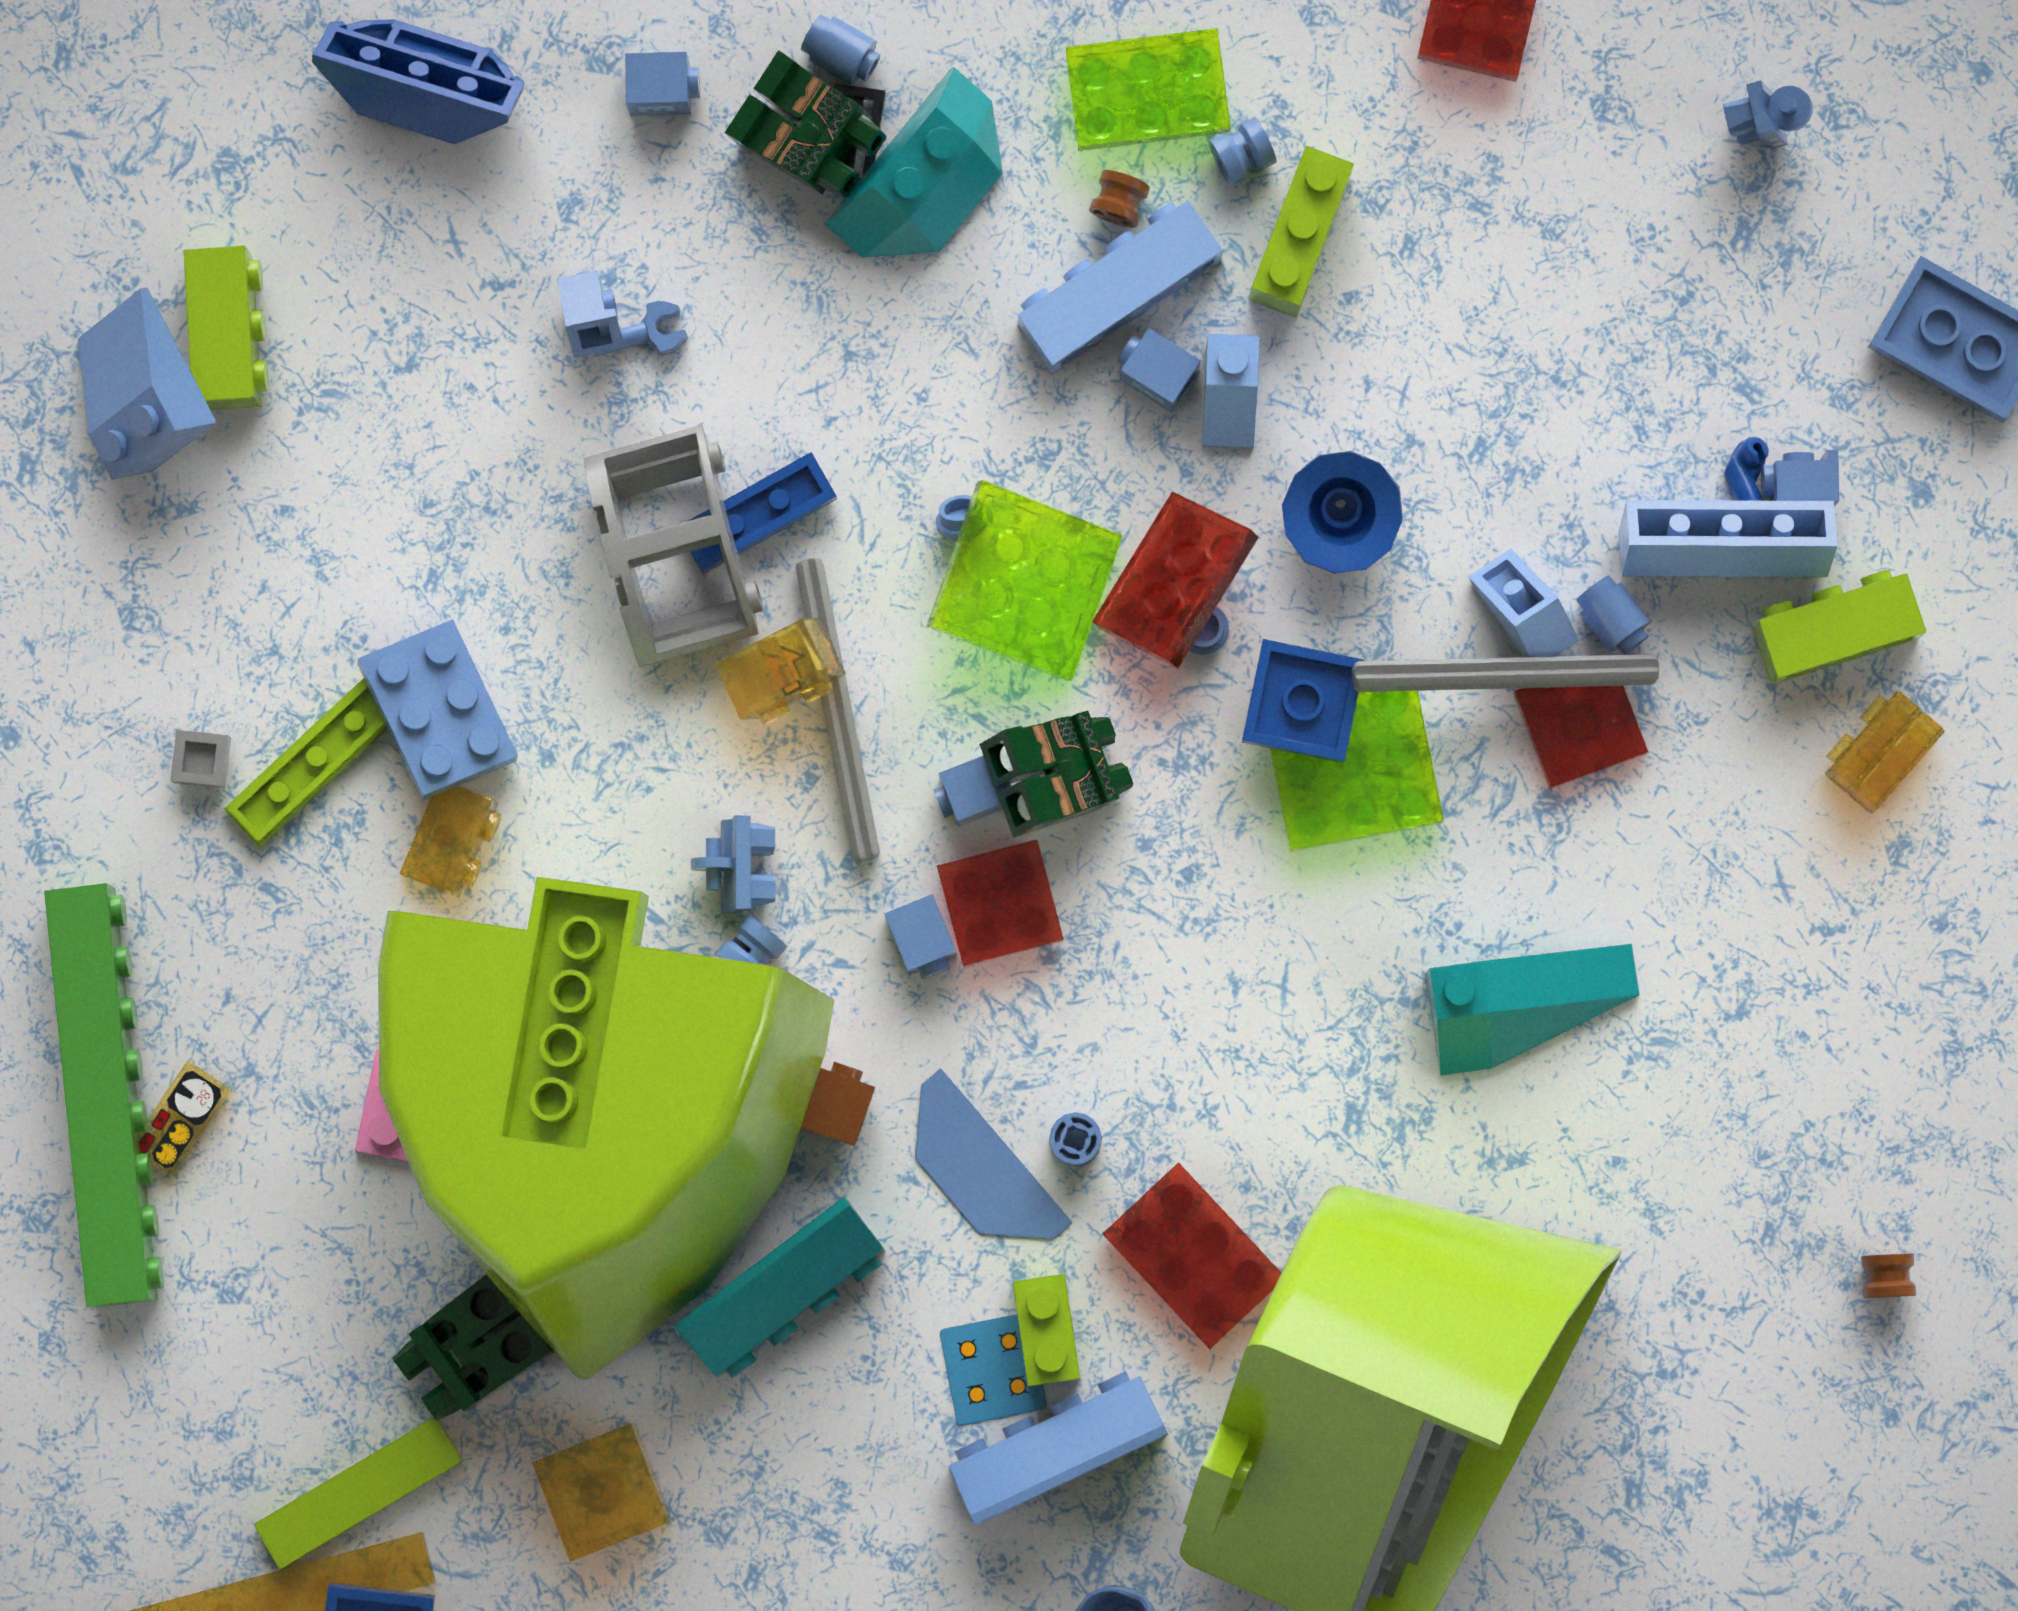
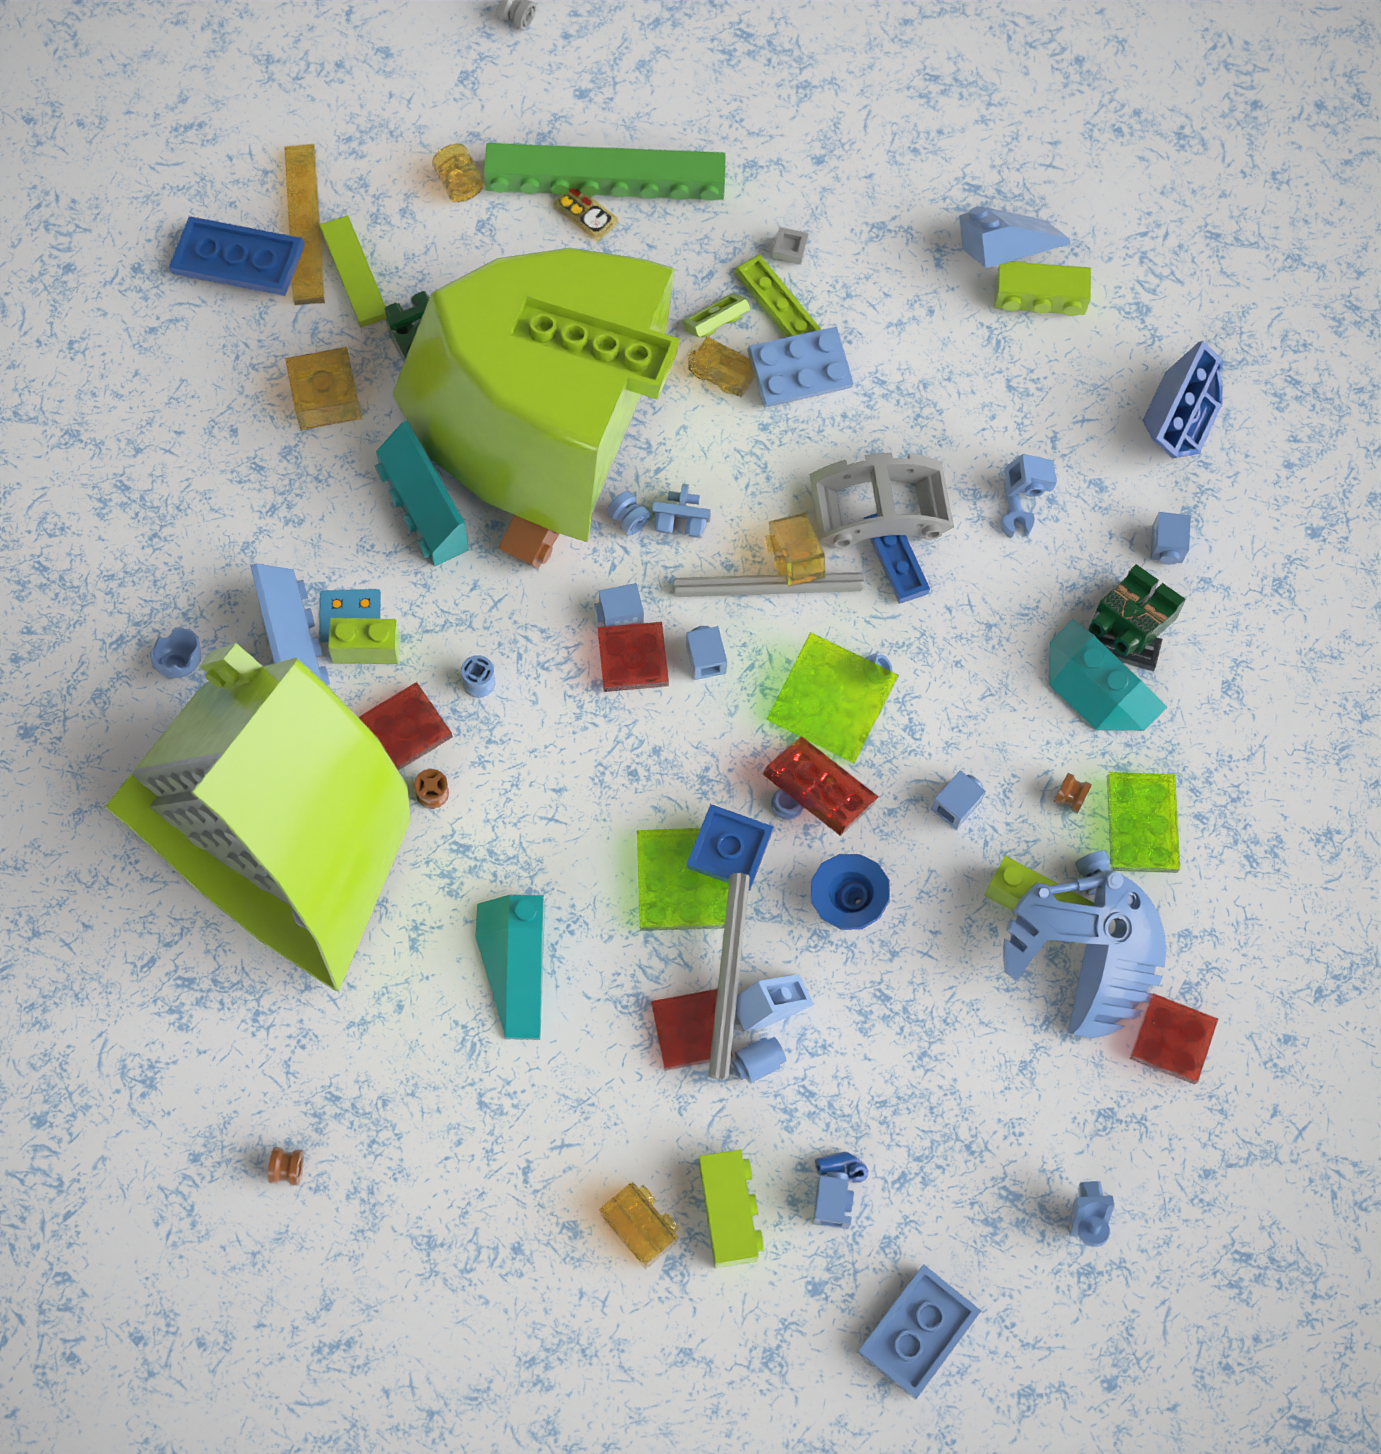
camera: 90 degrees right, 15 degrees down
(145, 1348) = (458, 173): none -> clear yellow wheel
(358, 863) = (715, 315): none -> lime plate
(841, 49) = (1183, 643): medium blue brick -> none
(979, 1168) = (472, 626): medium blue sticker -> none
(1073, 766) = (711, 704): dark green hips -> none
(1118, 286) = (1015, 784): light blue brick -> none
(1230, 391) = (940, 841): light blue slope -> none
(1276, 1170) = (431, 781): none -> dark orange wheel
(1356, 115) = (1114, 966): none -> medium blue piece
(1727, 538) = (799, 1140): light blue brick -> none

